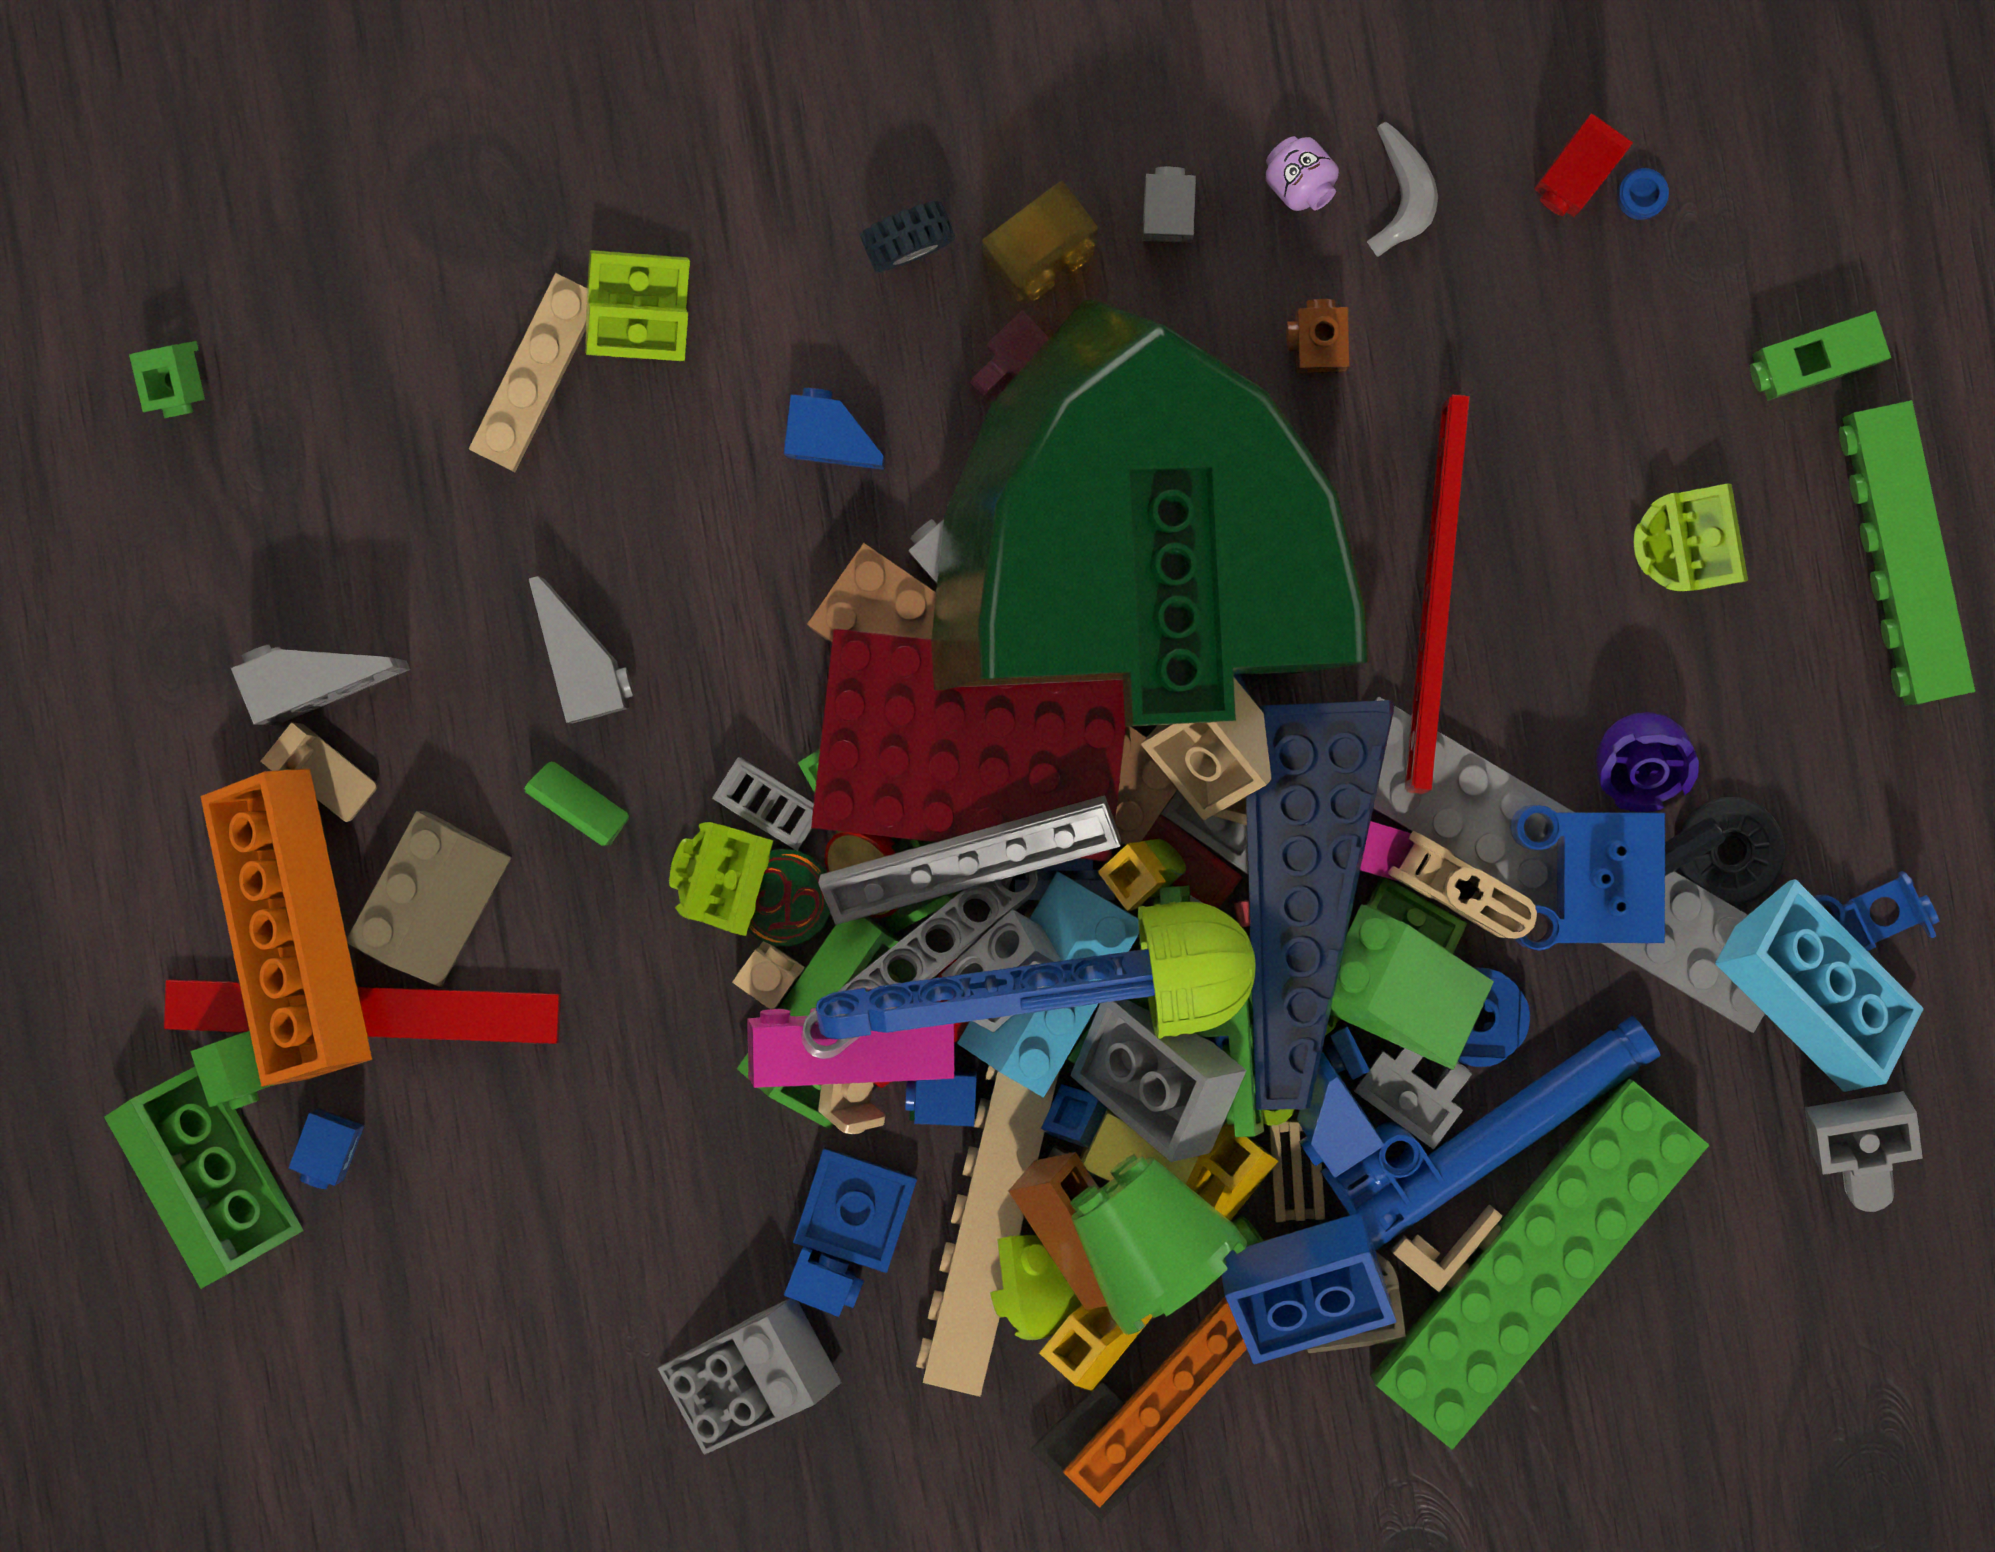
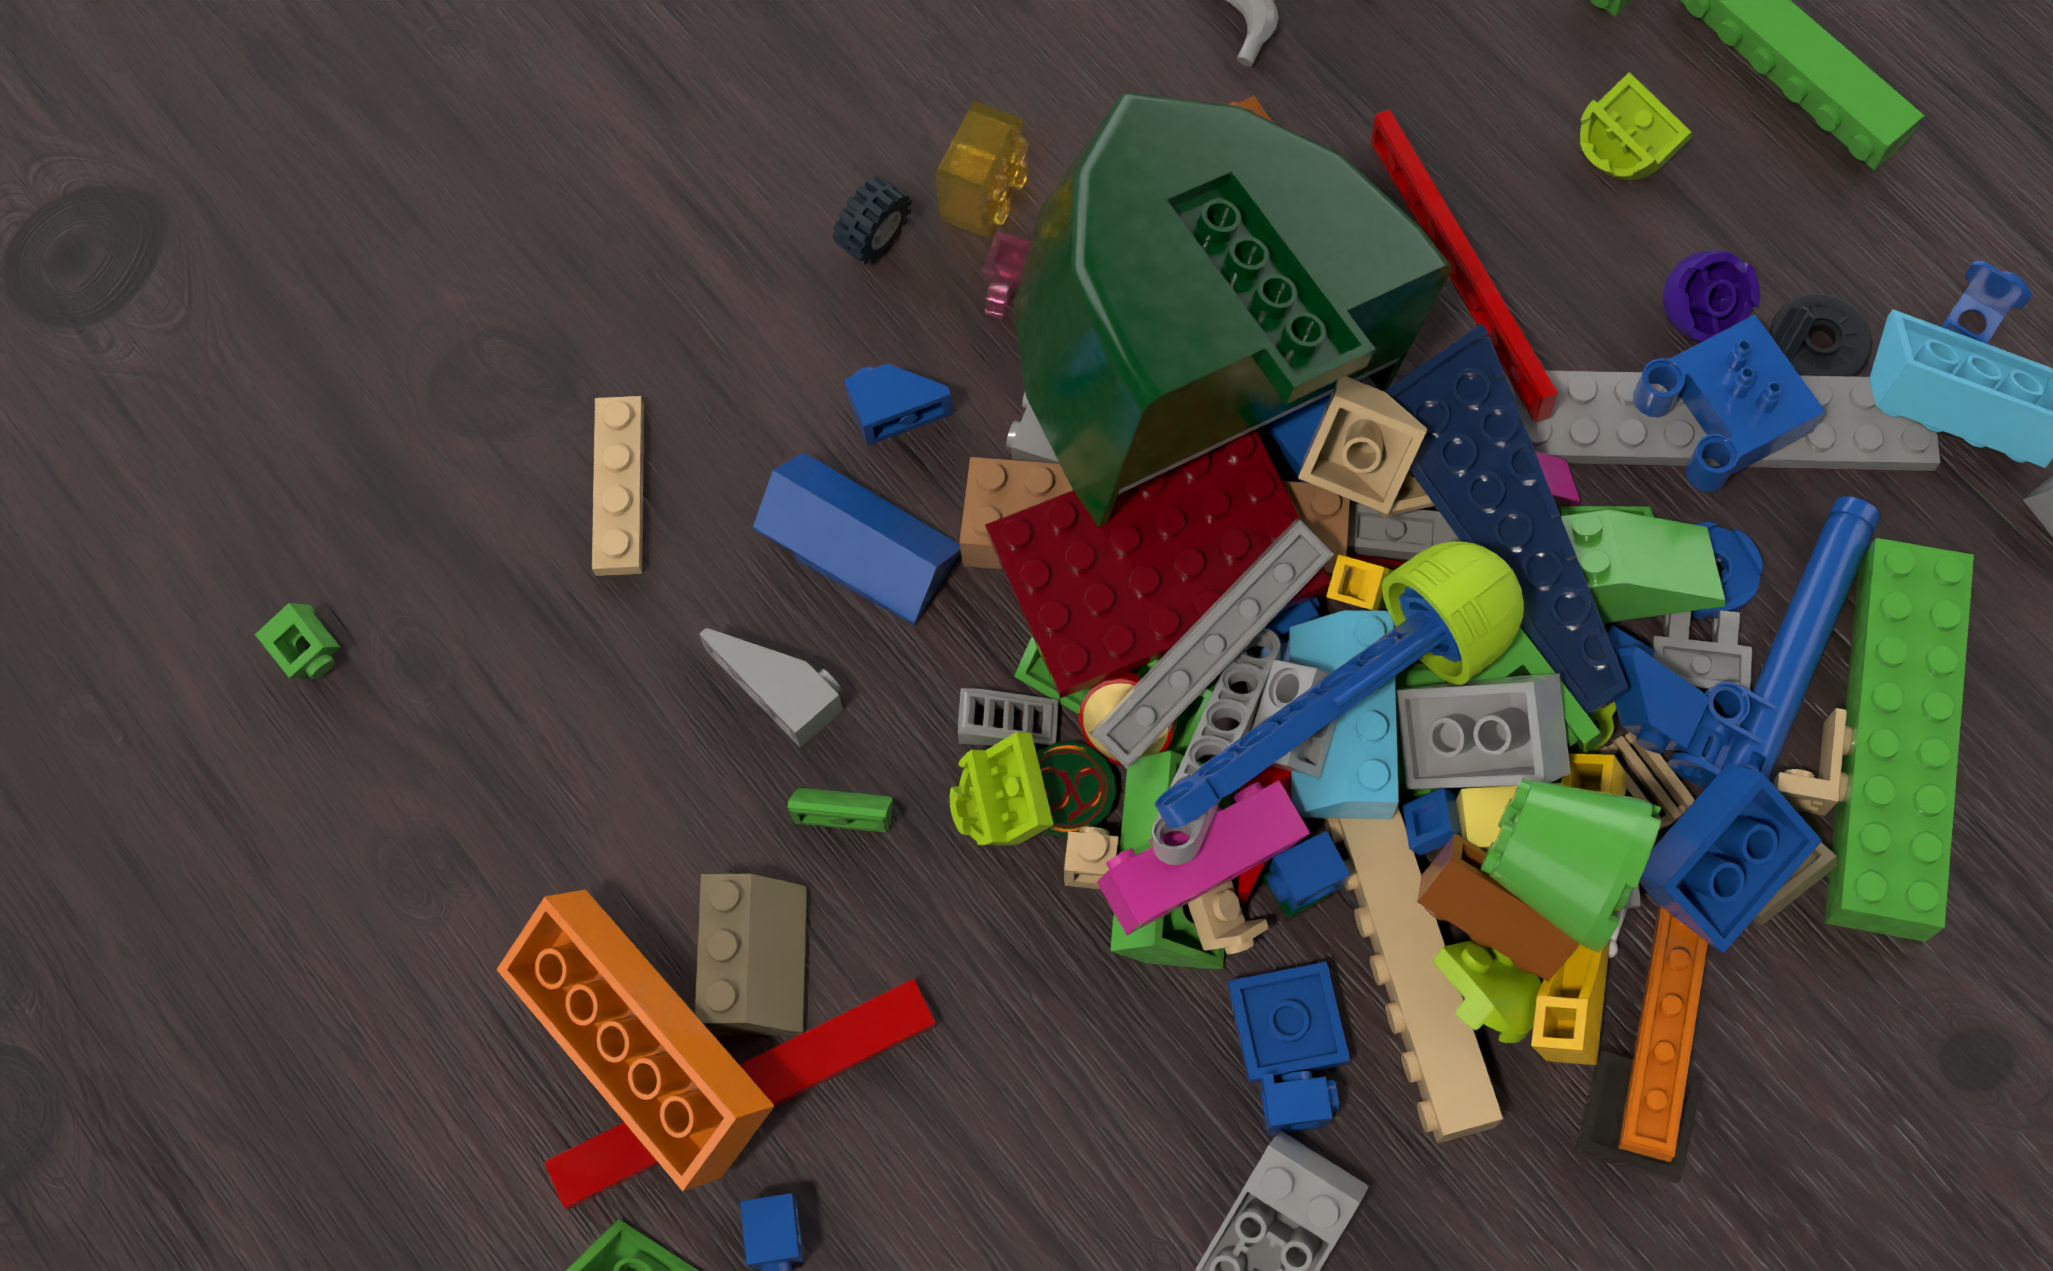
camera: 30 degrees left, 20 degrees down
(229, 1071) = (647, 1205): bright green brick -> none
(293, 682) = (547, 814): light grey slope -> none
(335, 779) = (623, 900): tan bracket -> none
(637, 305) = (676, 386): lime slope -> none
(726, 551) = (855, 537): none -> blue slope
(1169, 205) = (1068, 105): light grey brick -> none
(1301, 173) = (1157, 31): lavender head -> none
(1491, 907) = (1640, 467): tan piece -> none

